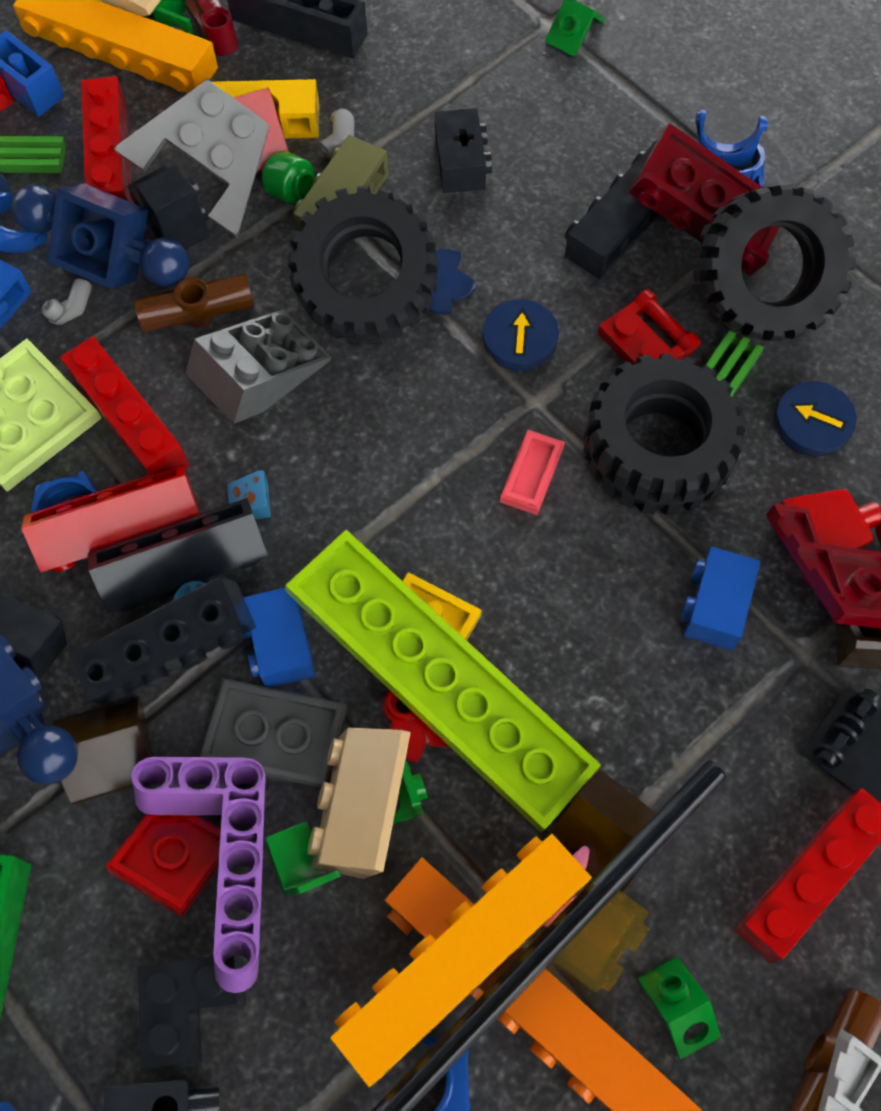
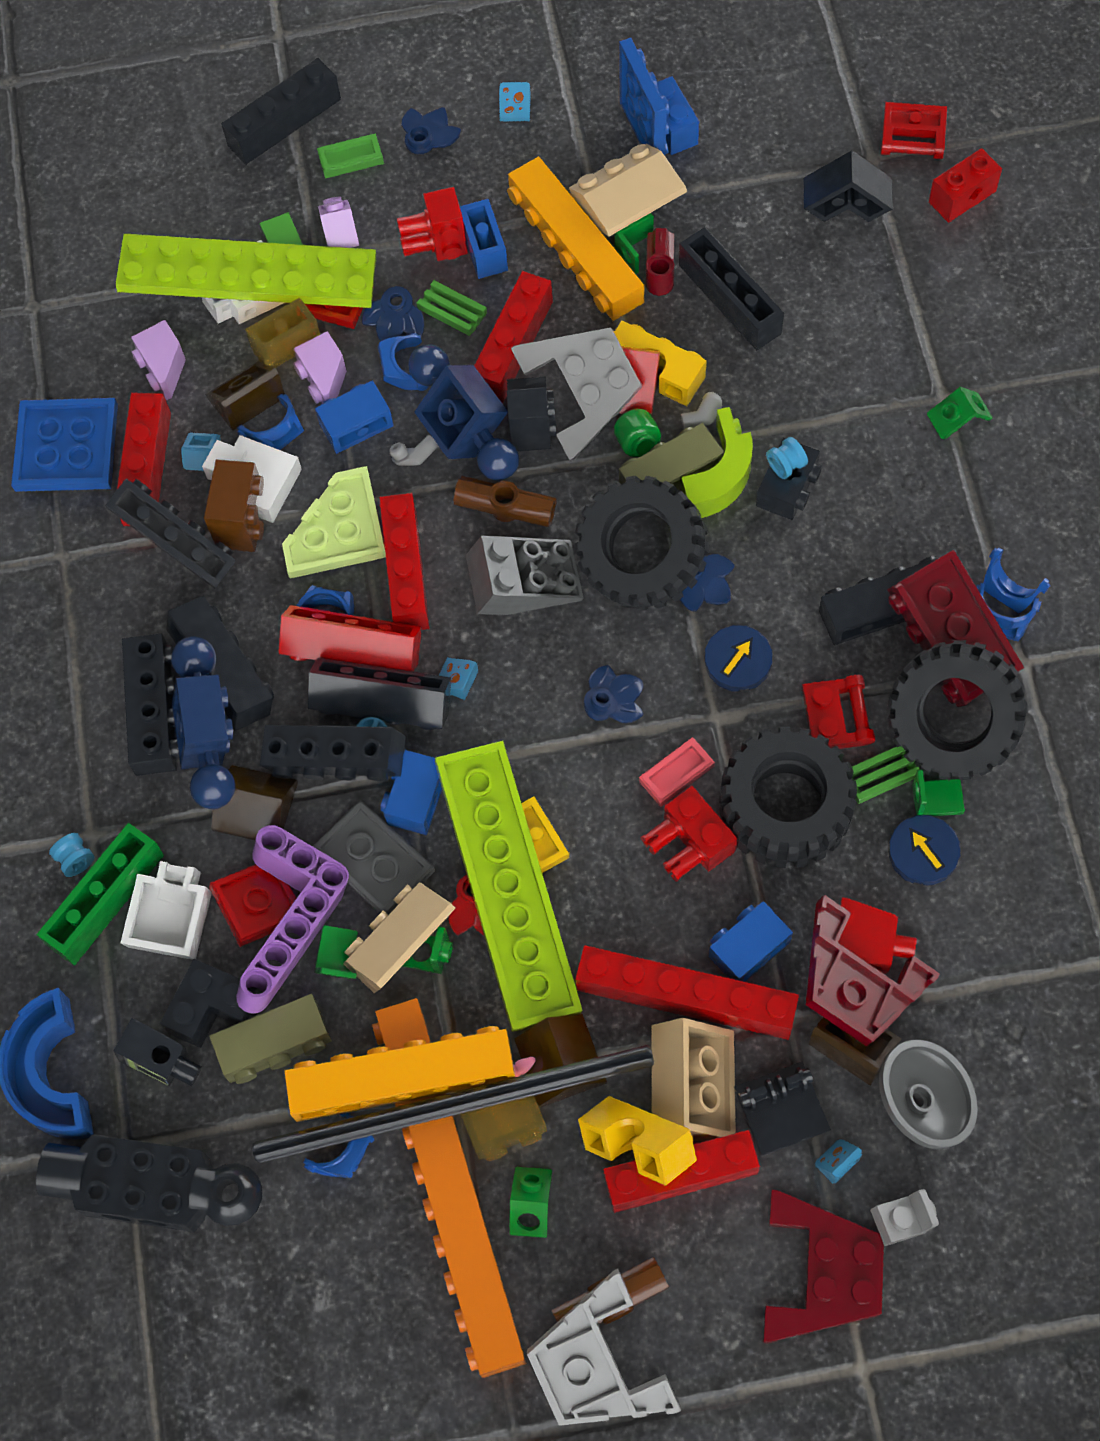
camera: 35 degrees right, 0 degrees up
(72, 928) = (167, 912): none -> white piece
(280, 1006) = (270, 1039): none -> olive brick
(403, 167) = (723, 483): none -> lime arch
(422, 433) = (617, 694): none -> dark blue plate
(454, 122) = (787, 457): none -> dark azure wheel
(596, 514) = (698, 827): none -> red brick
(694, 682) = (686, 992): none -> red brick
(765, 773) = (694, 1077): none -> tan slope
(792, 362) = (938, 796): none -> green bracket
(800, 859) = (658, 1145): none -> yellow arch

